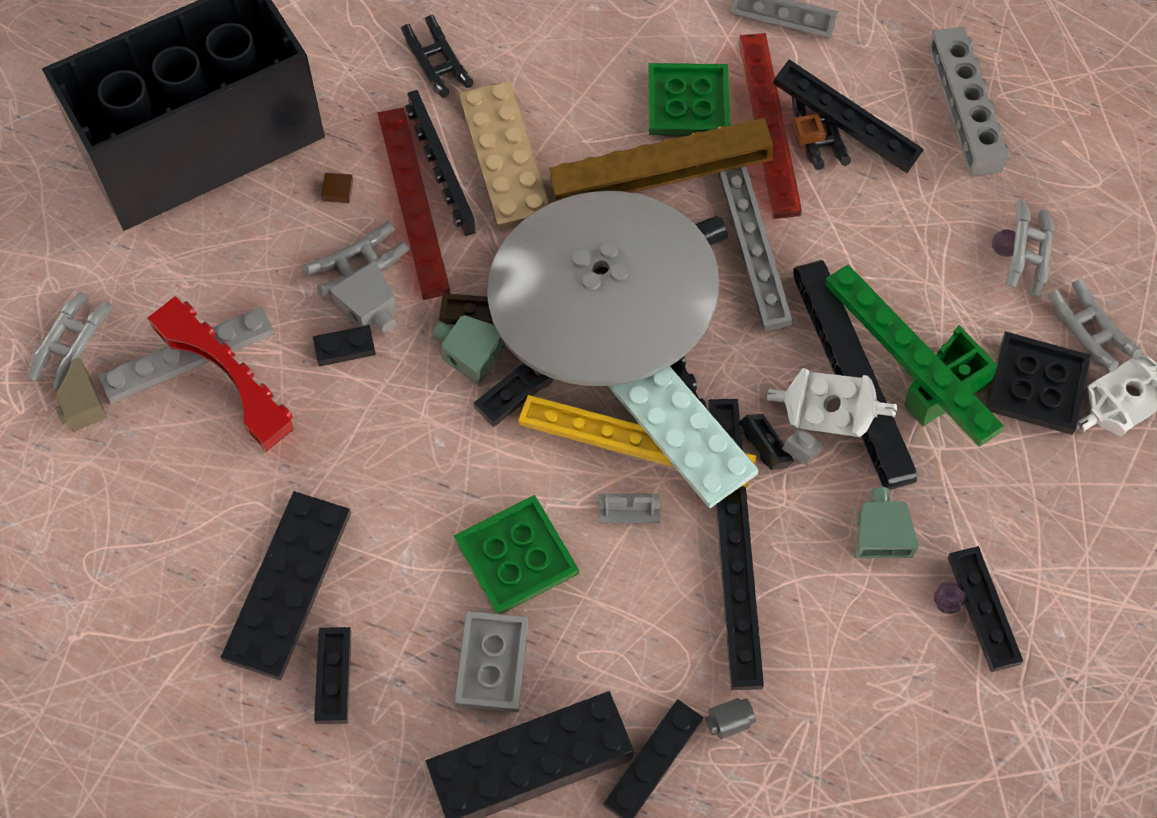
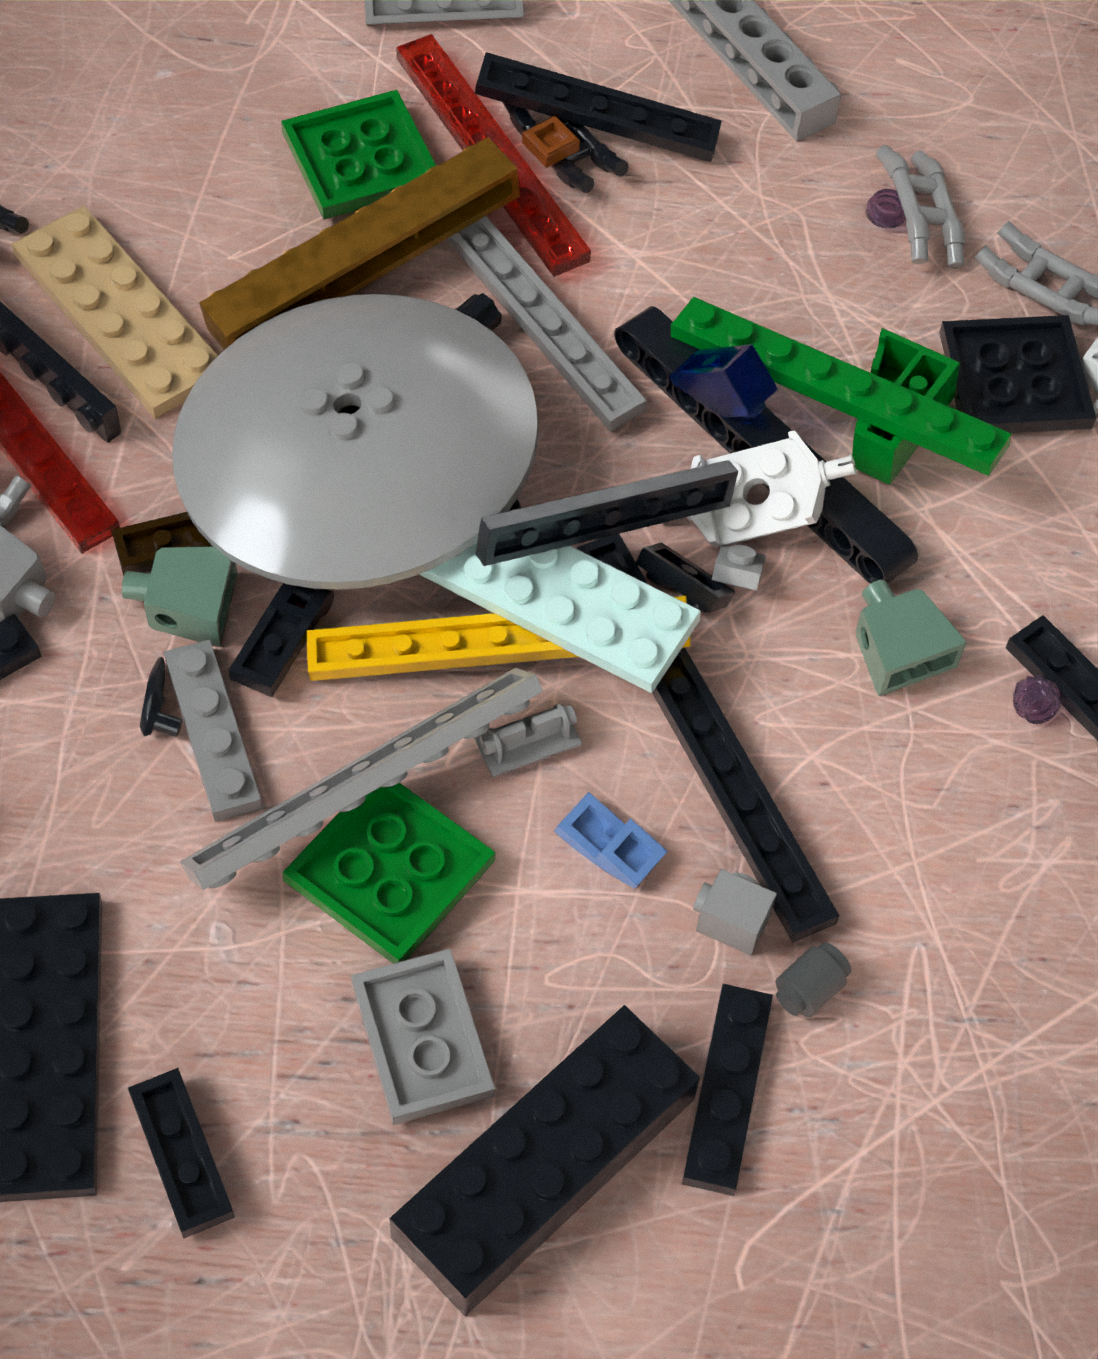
camera: 25 degrees left, 5 degrees down
(426, 404) = (154, 699): none -> black bar
(451, 435) = (212, 730): none -> light grey plate
(532, 495) = (347, 787): none -> light grey plate
(650, 587) = (609, 843): none -> medium blue slope
(703, 657) = (734, 910): none -> light grey brick
(728, 388) = (605, 512): none -> black plate
(843, 327) = (726, 380): none -> clear blue slope

